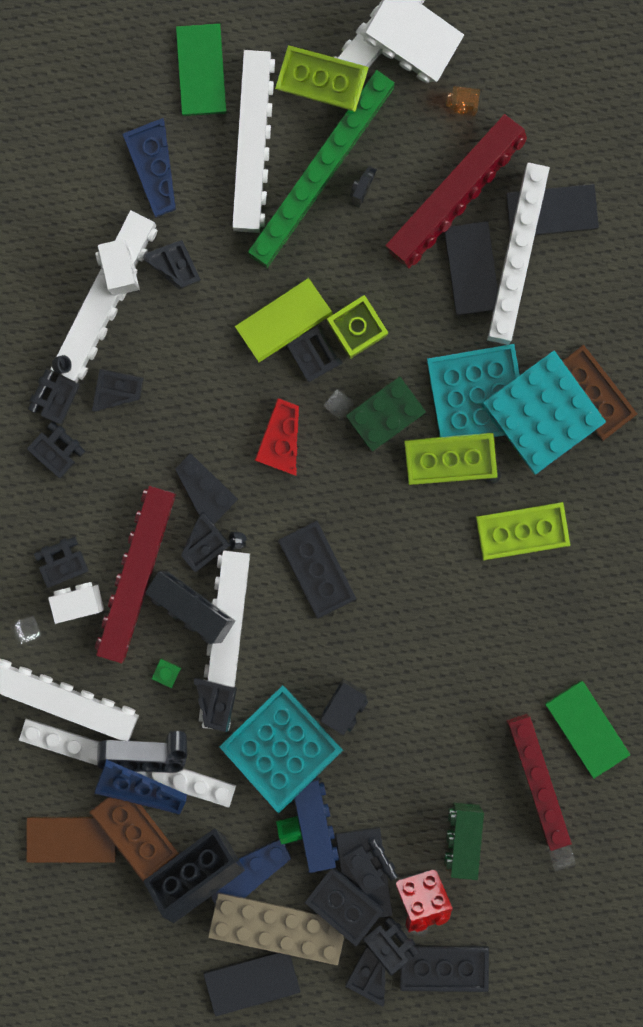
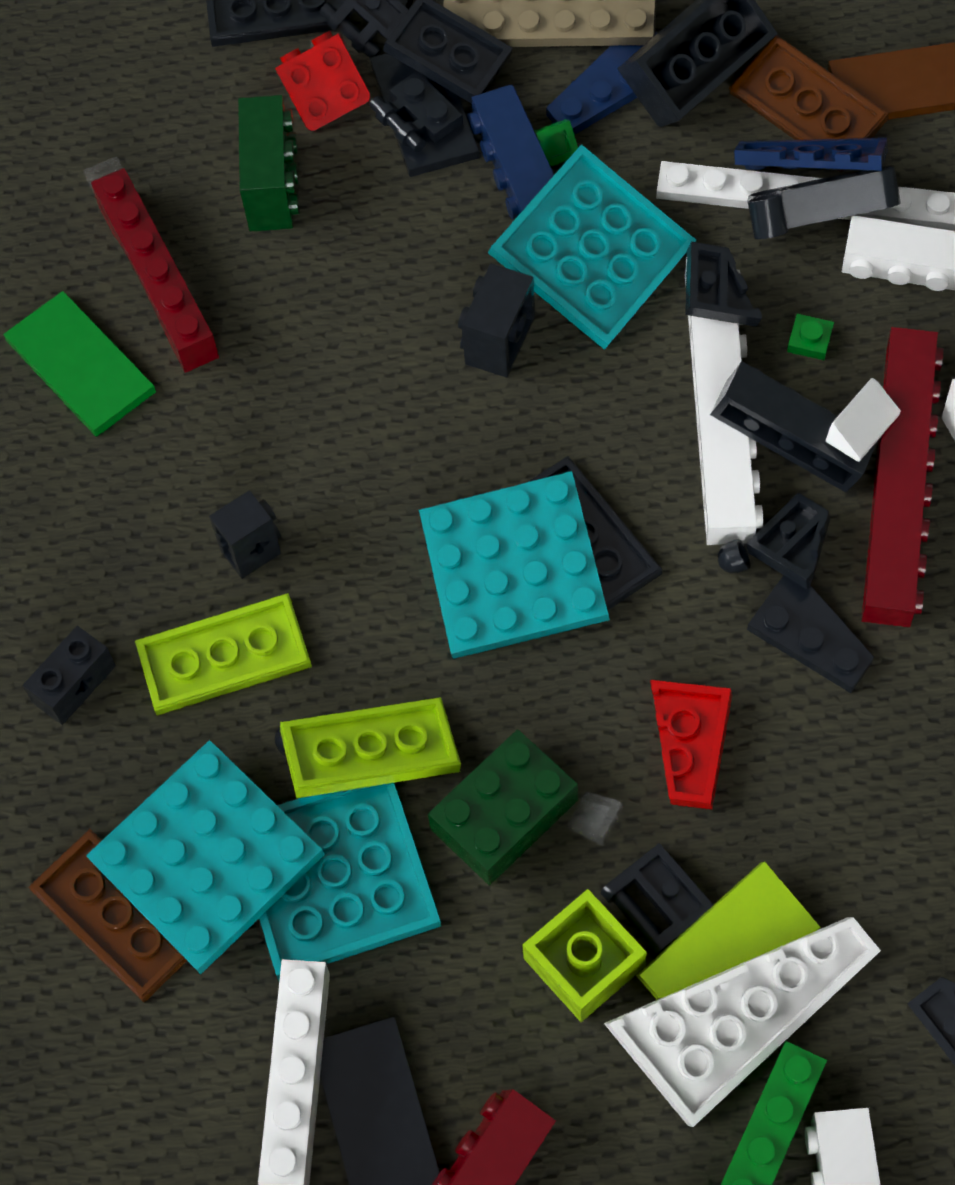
camera: 175 degrees right, 25 degrees down
(151, 599) = (863, 421): none -> white slope
(294, 280) = (725, 1026): none -> white wing
(358, 555) = (513, 565): none -> teal plate
(502, 593) = (246, 533): none -> black brick
(607, 528) = (69, 675): none -> black brick

